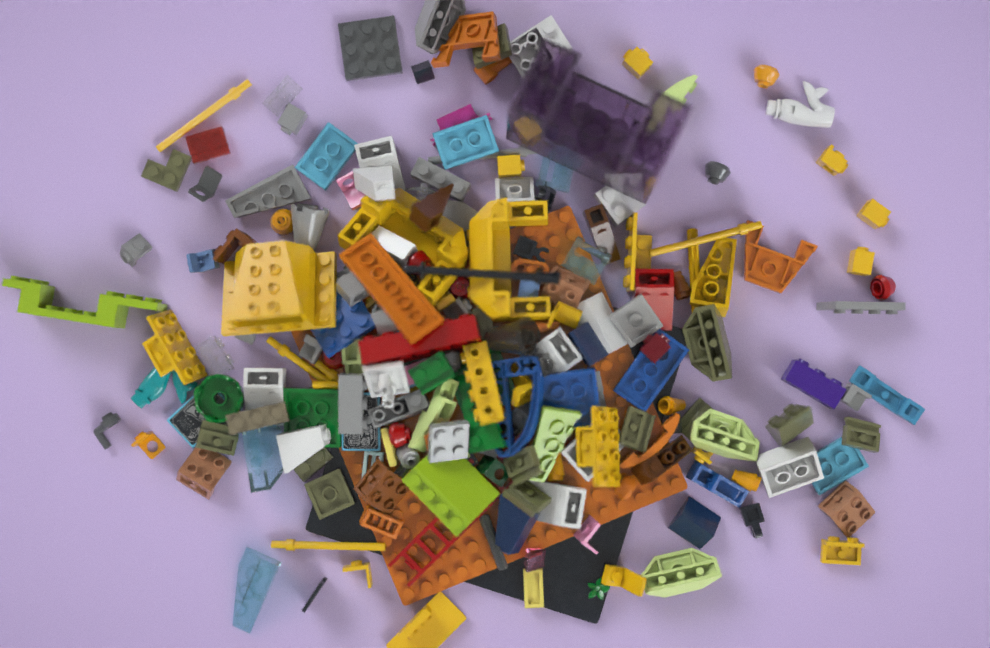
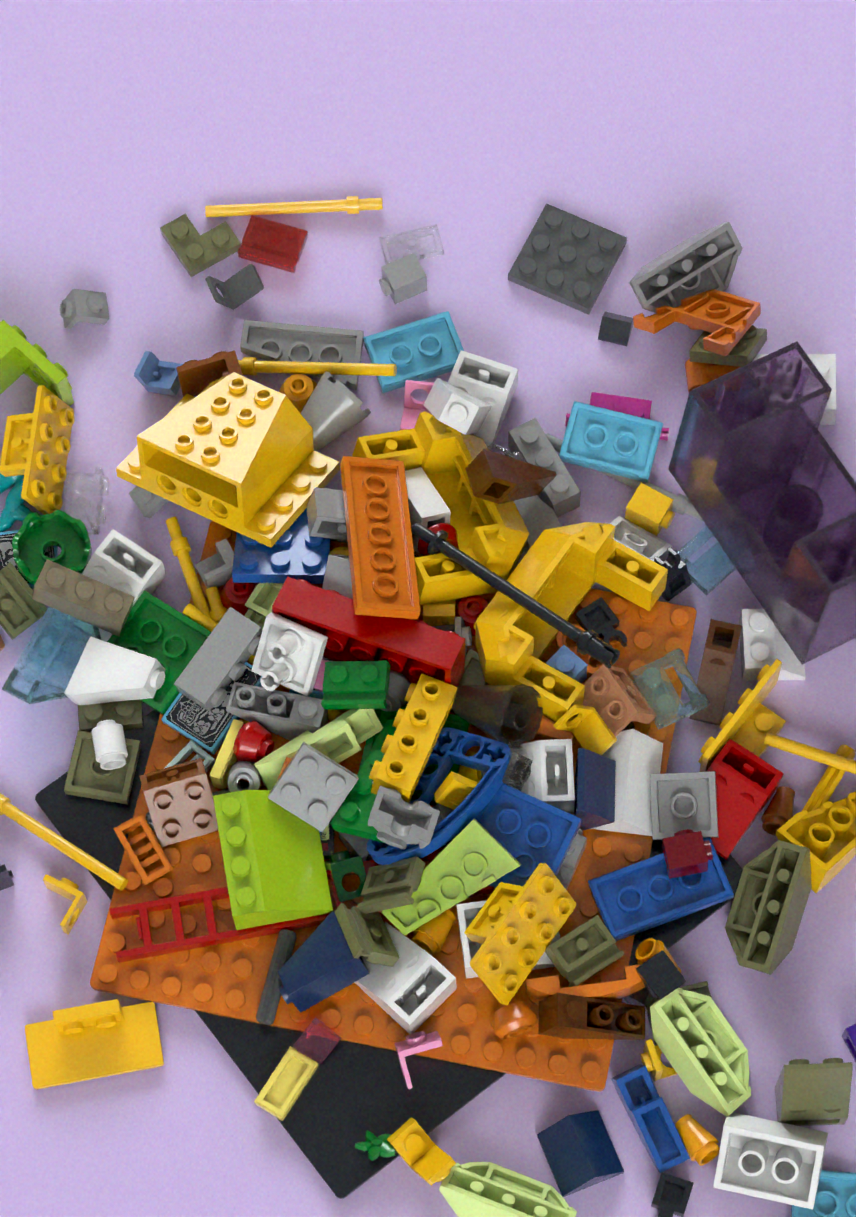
camera: 40 degrees right, 20 degrees down
(248, 223) = (252, 366): none -> yellow bar
(326, 483) = (109, 744): none -> white brick
(509, 434) = (400, 821): none -> light grey cylinder
(685, 420) = (660, 975): none -> black slope

